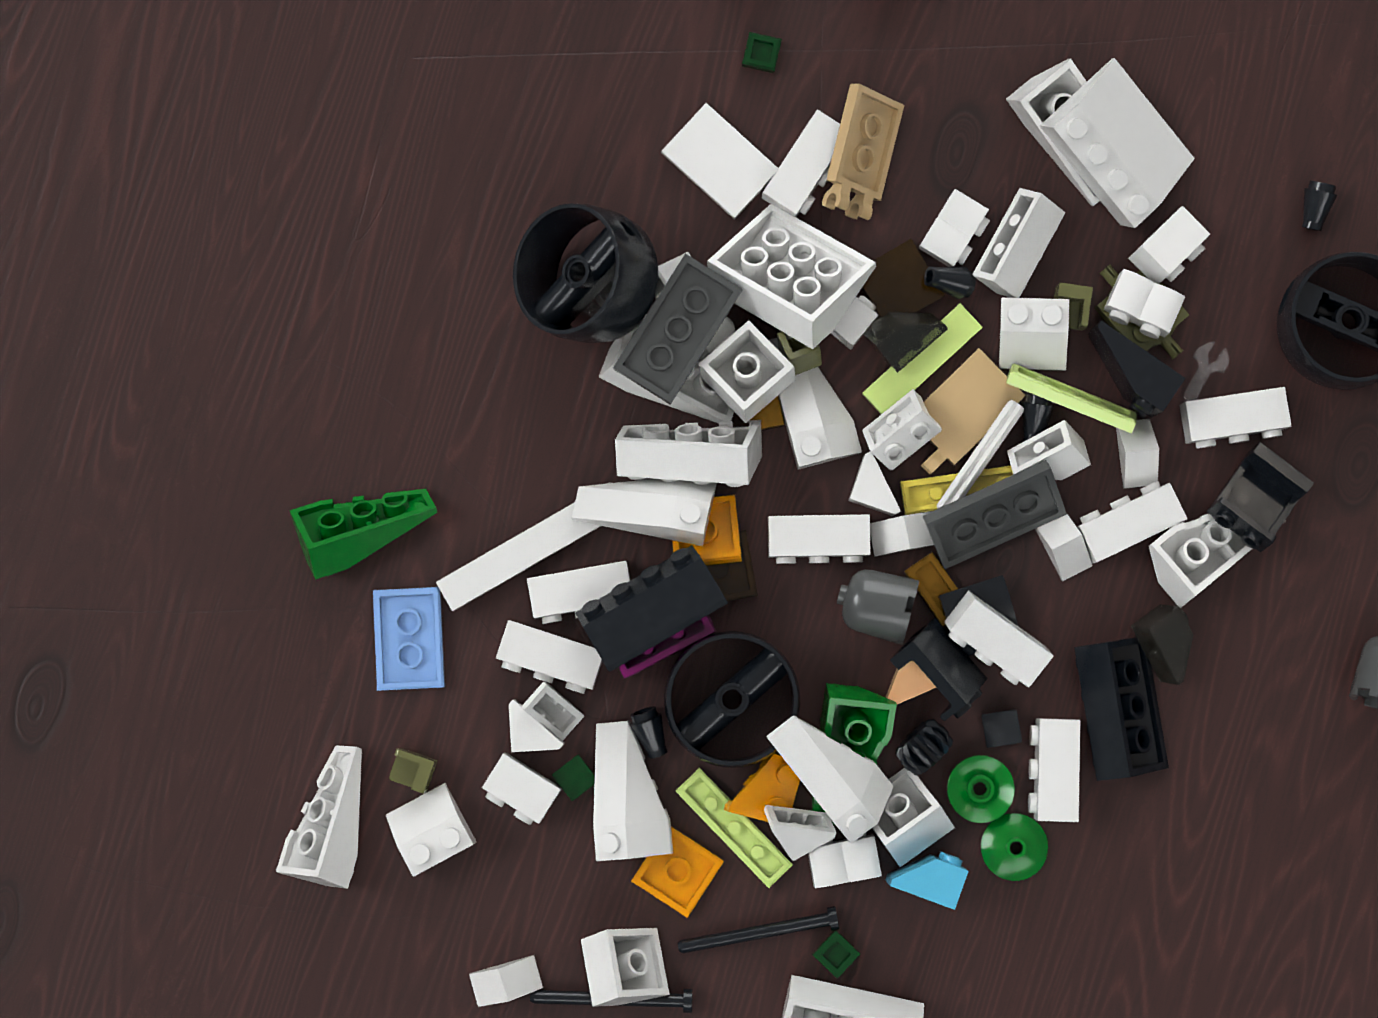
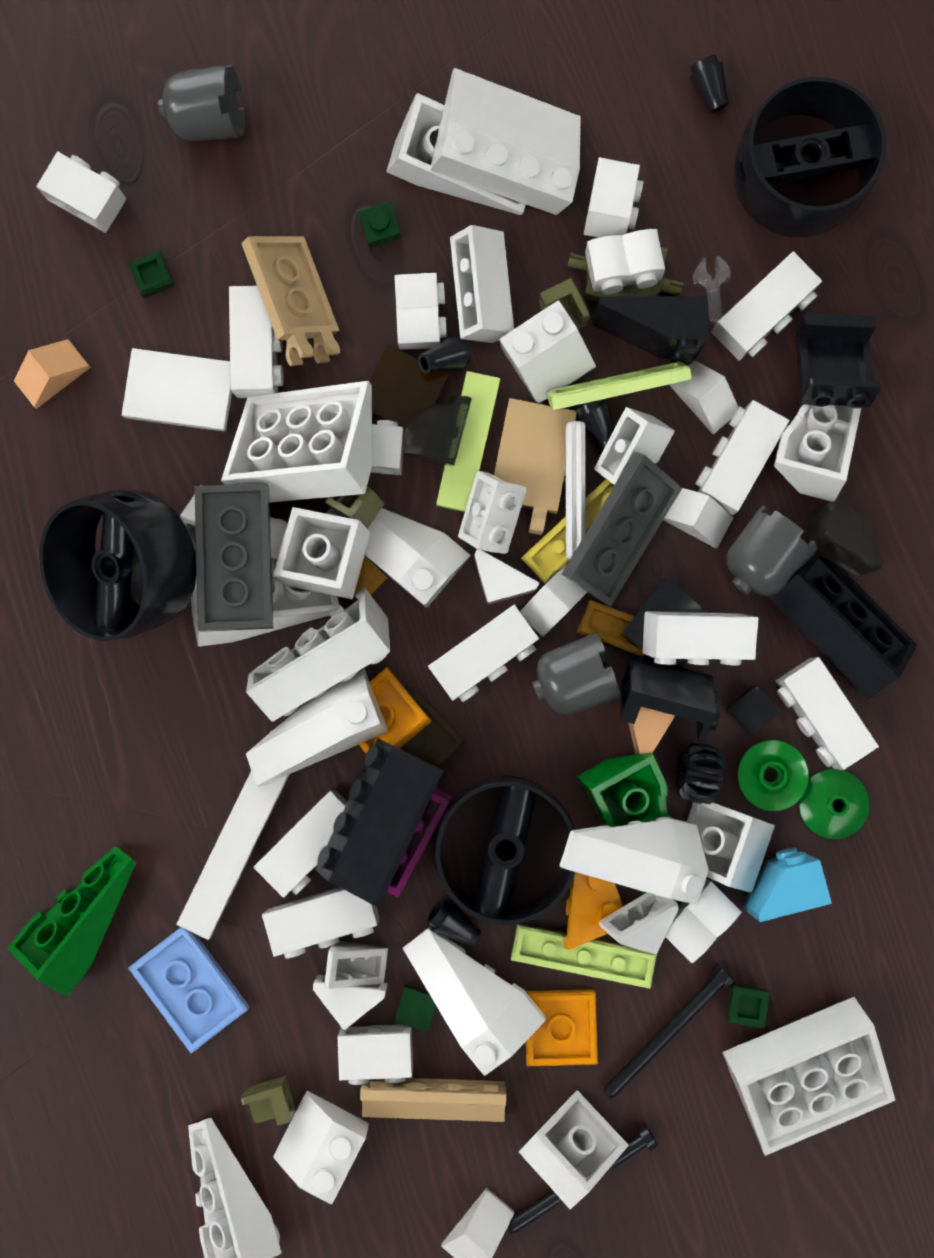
camera: 35 degrees left, 0 degrees up
(540, 857) = (435, 1099): none -> tan fence
(627, 76) = (49, 370): none -> light nougat slope
(971, 136) = (379, 224): none -> dark green plate
(1095, 612) = (767, 553): none -> dark grey cylinder

